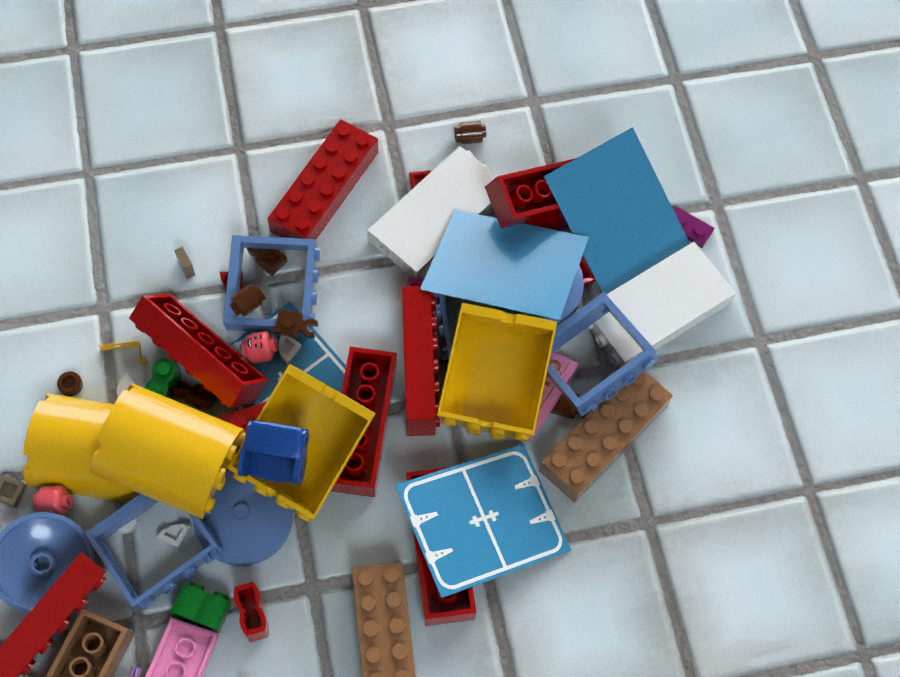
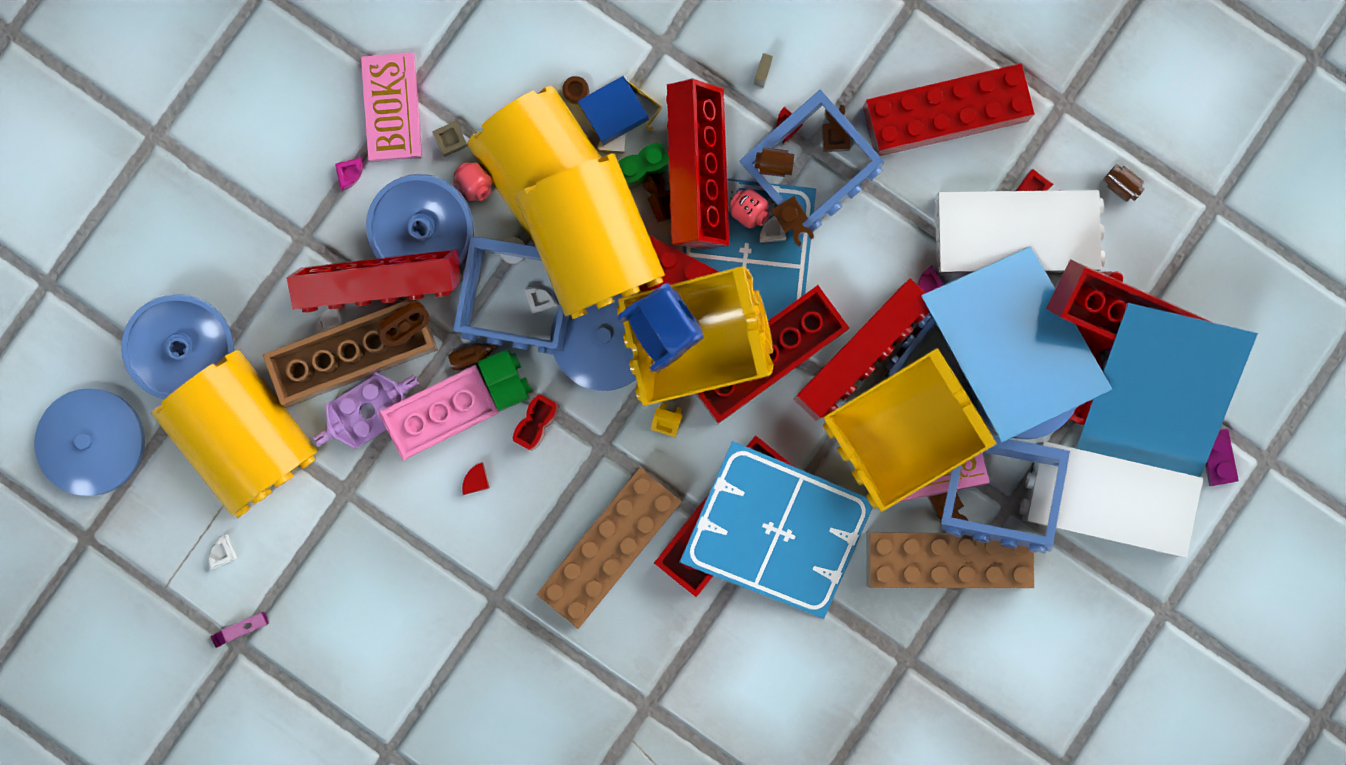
camera: 50 degrees right, 20 degrees up
(91, 633) = (403, 324): none -> reddish brown plate
(108, 371) = (613, 110): none -> blue tile
(160, 616) = (470, 355): none -> reddish brown piece
(339, 526) = (666, 421): none -> yellow tile

